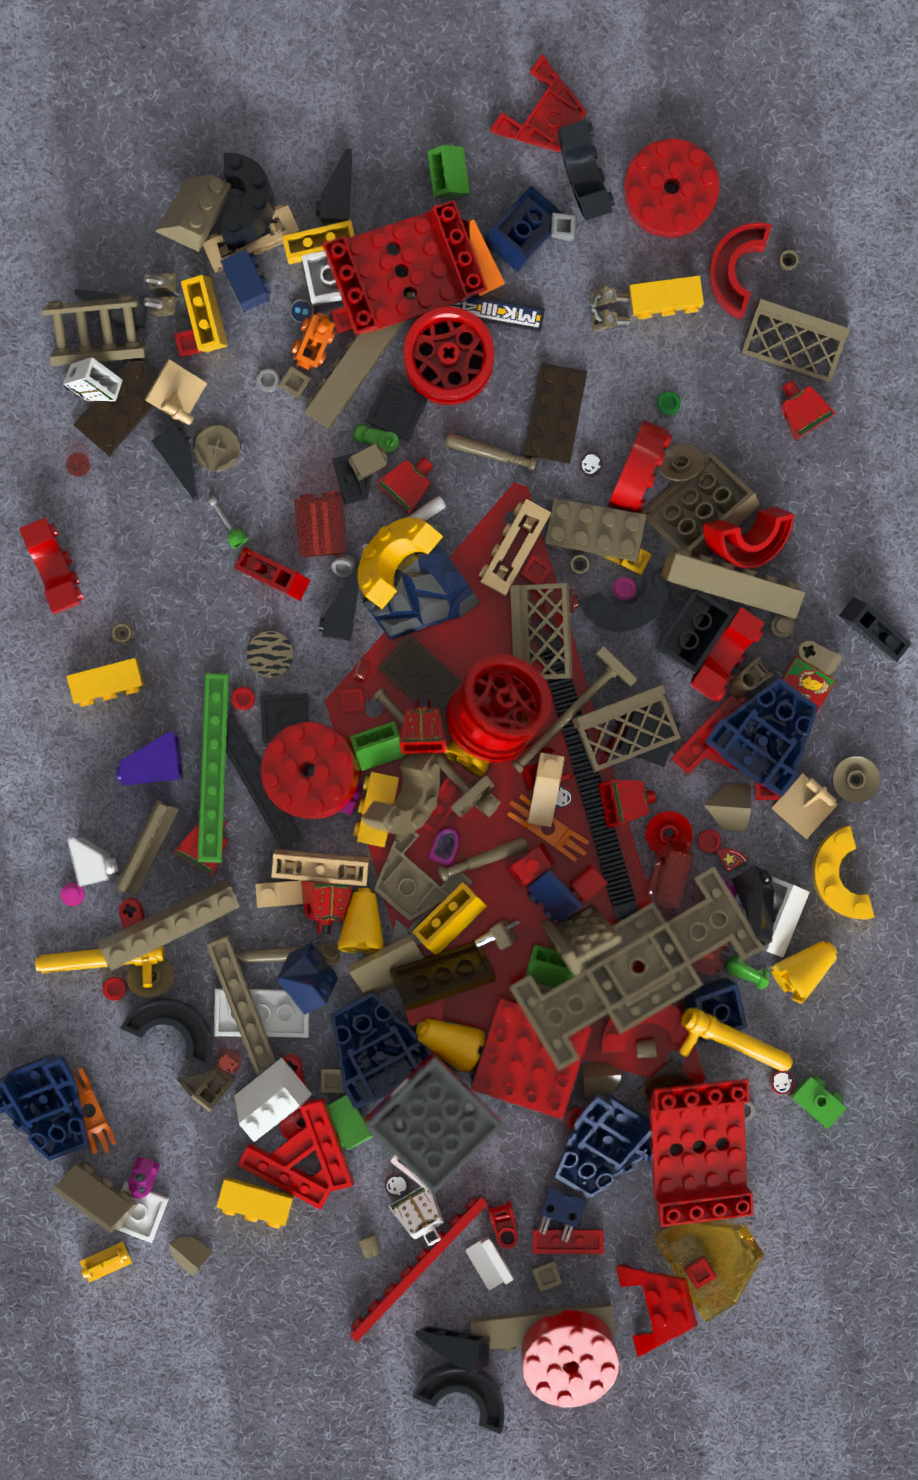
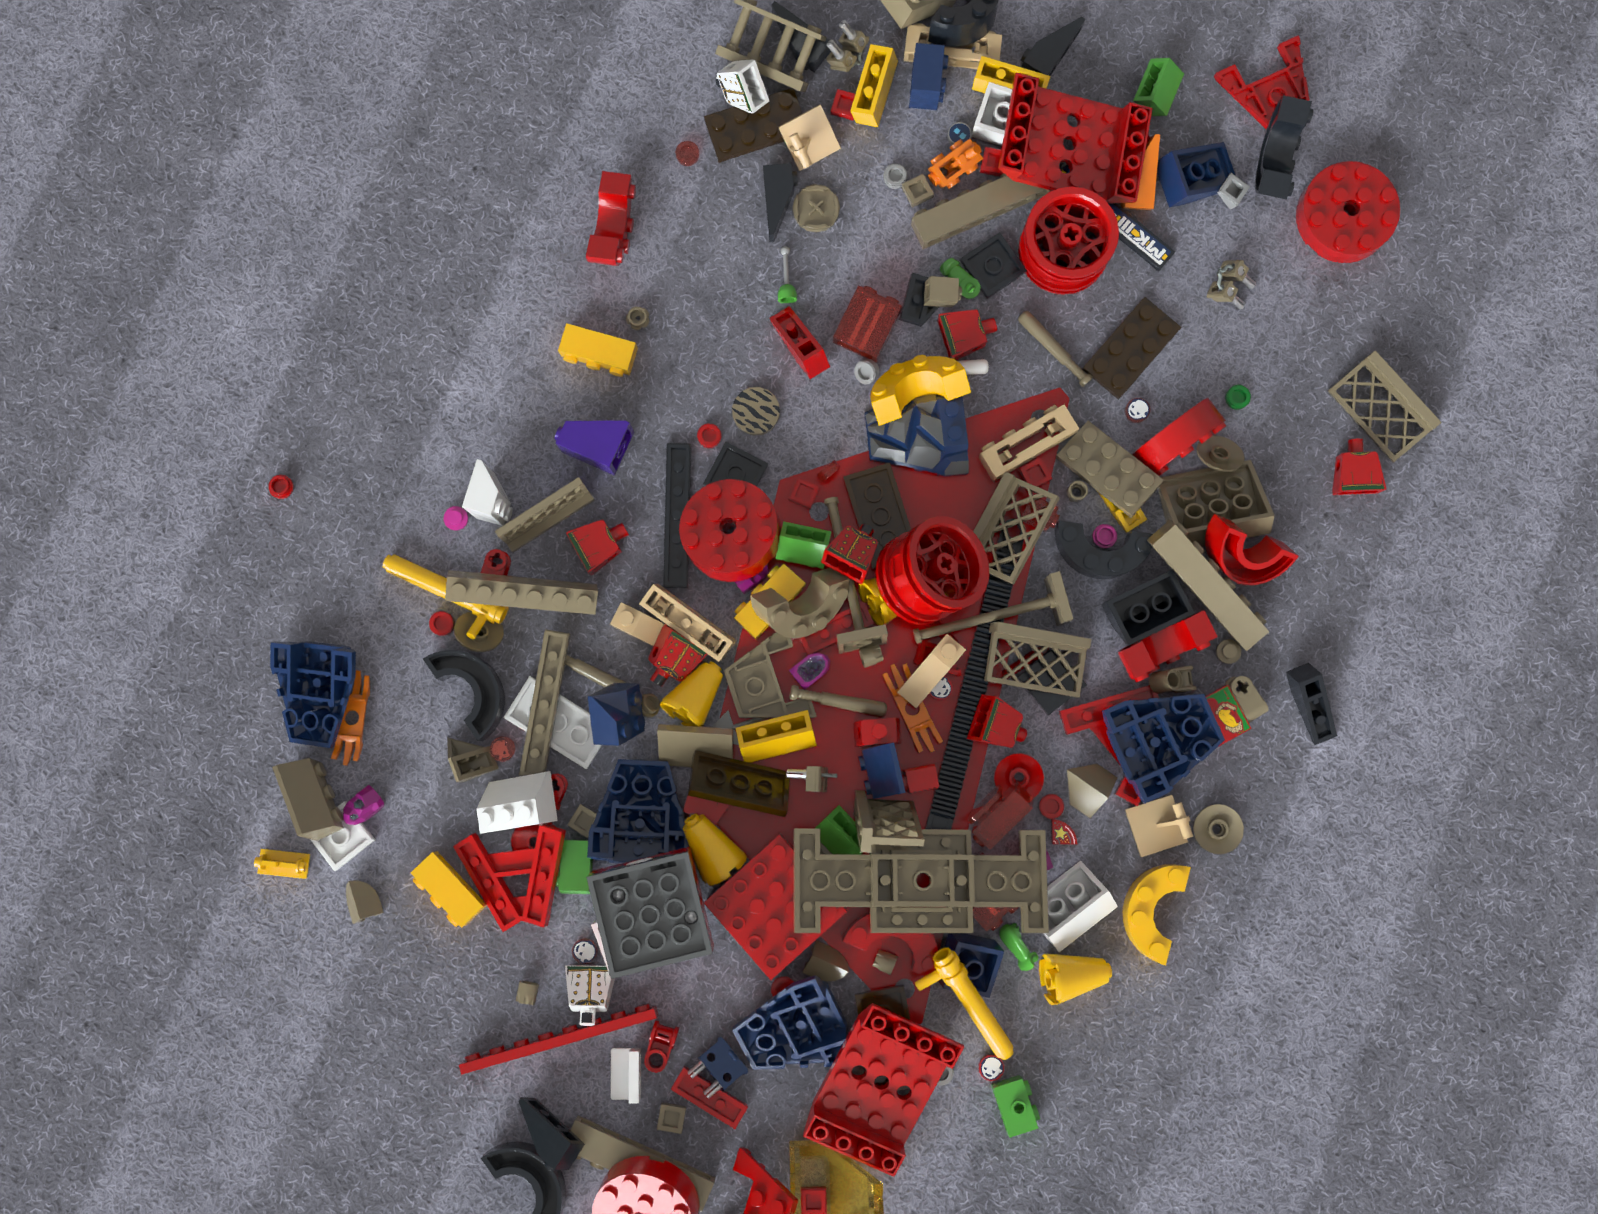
camera: 35 degrees right, 5 degrees down
(213, 768) = (645, 479): bright green tile -> none
(341, 614) = (840, 410): black slope -> none
(666, 297) = (1289, 302): yellow brick -> none
(721, 272) = (1348, 320): red brick -> none
(757, 899) = (1067, 883): black slope -> none
(792, 256) = (1421, 330): dark tan hose -> none

